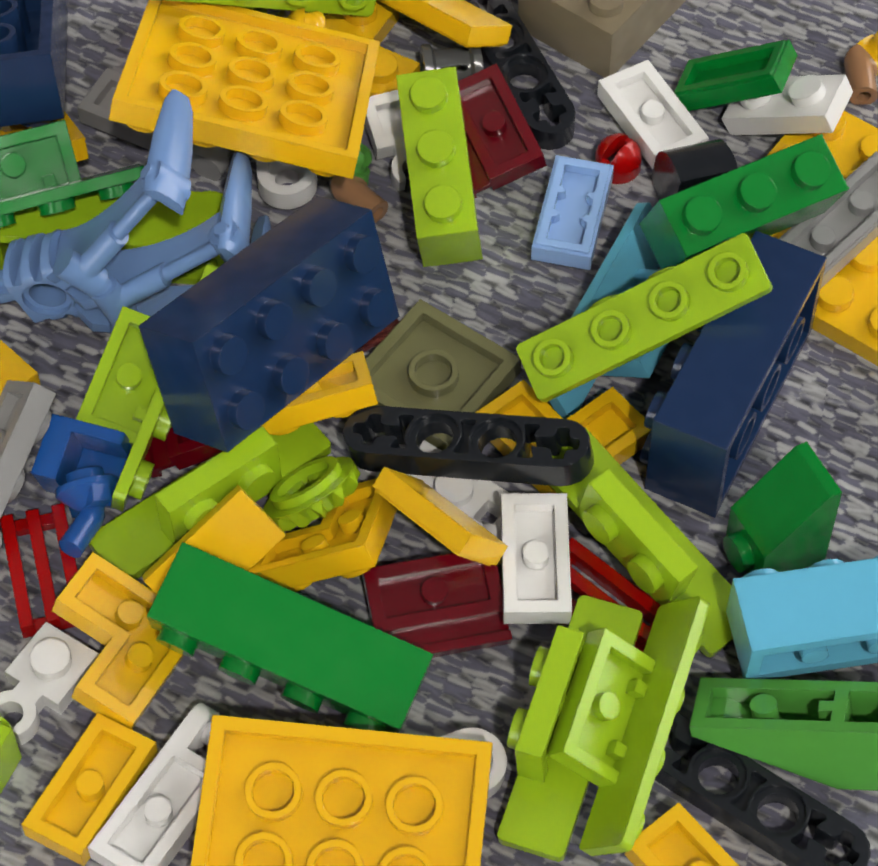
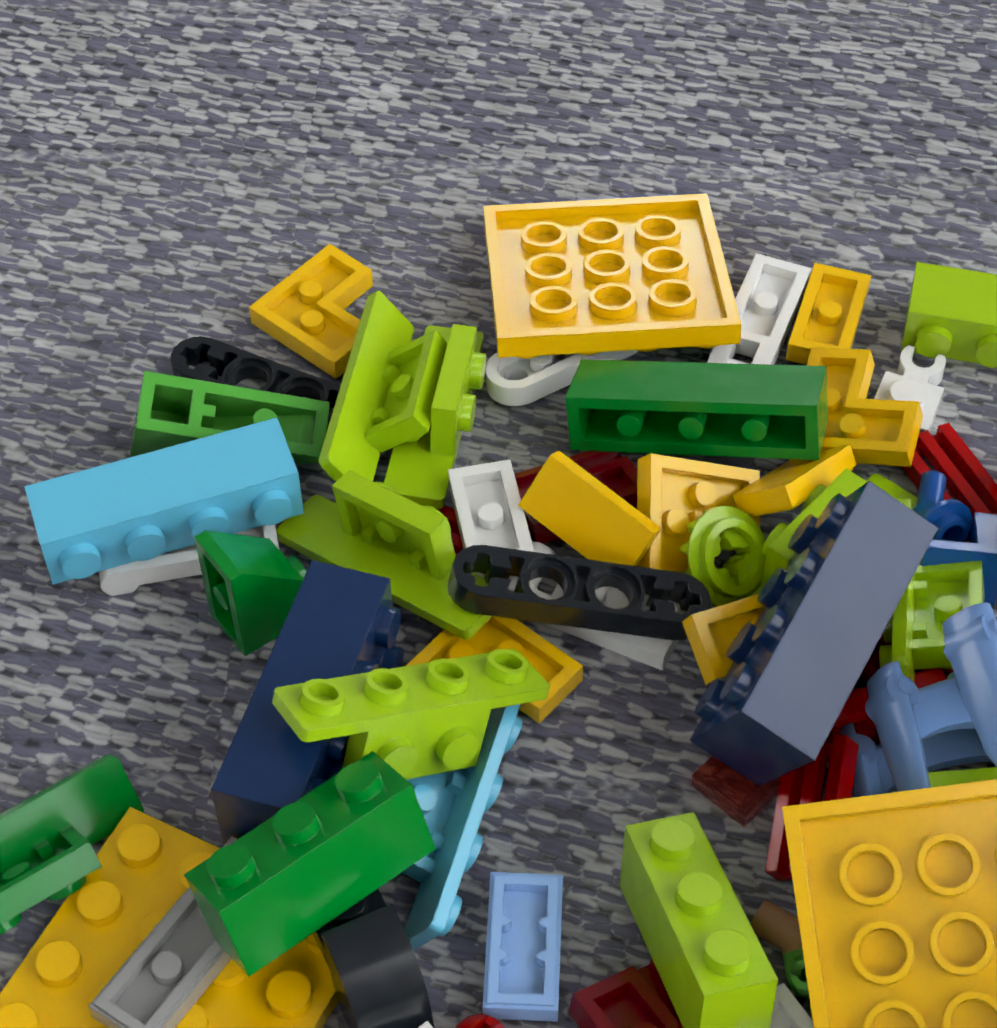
camera: 170 degrees right, 5 degrees down
(439, 366) = (631, 714): olive plate -> none

